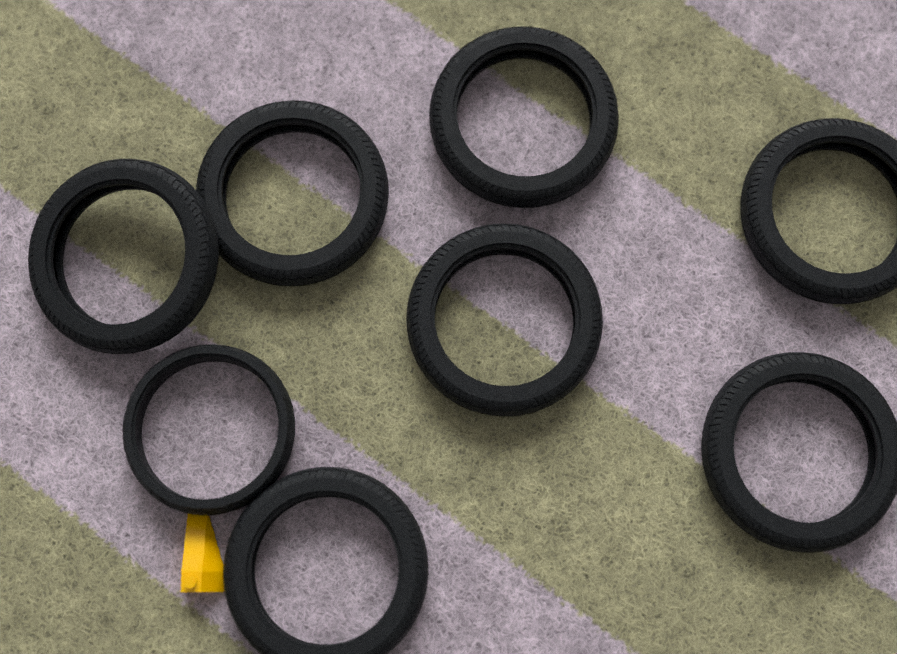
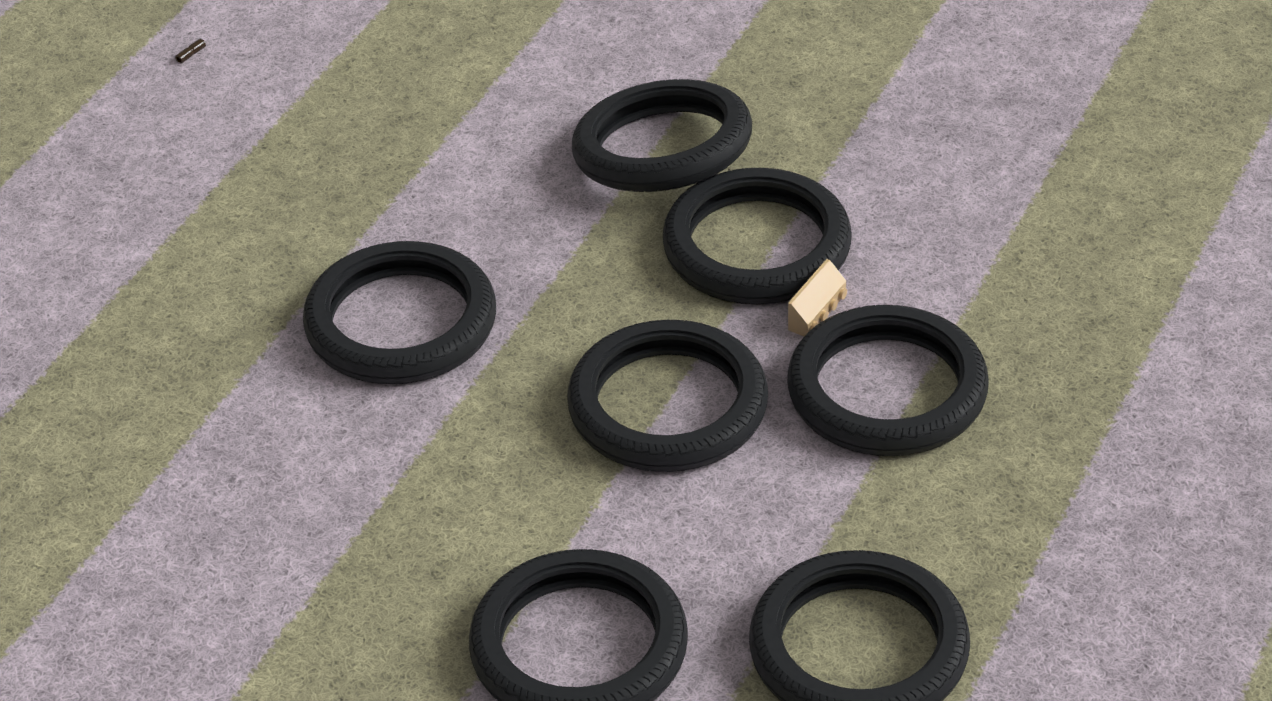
camera: 85 degrees right, 35 degrees down
(149, 385) = (513, 175): black tyre -> none
(201, 557) = (390, 231): yellow wedge -> none
(403, 157) = (816, 299): none -> slope

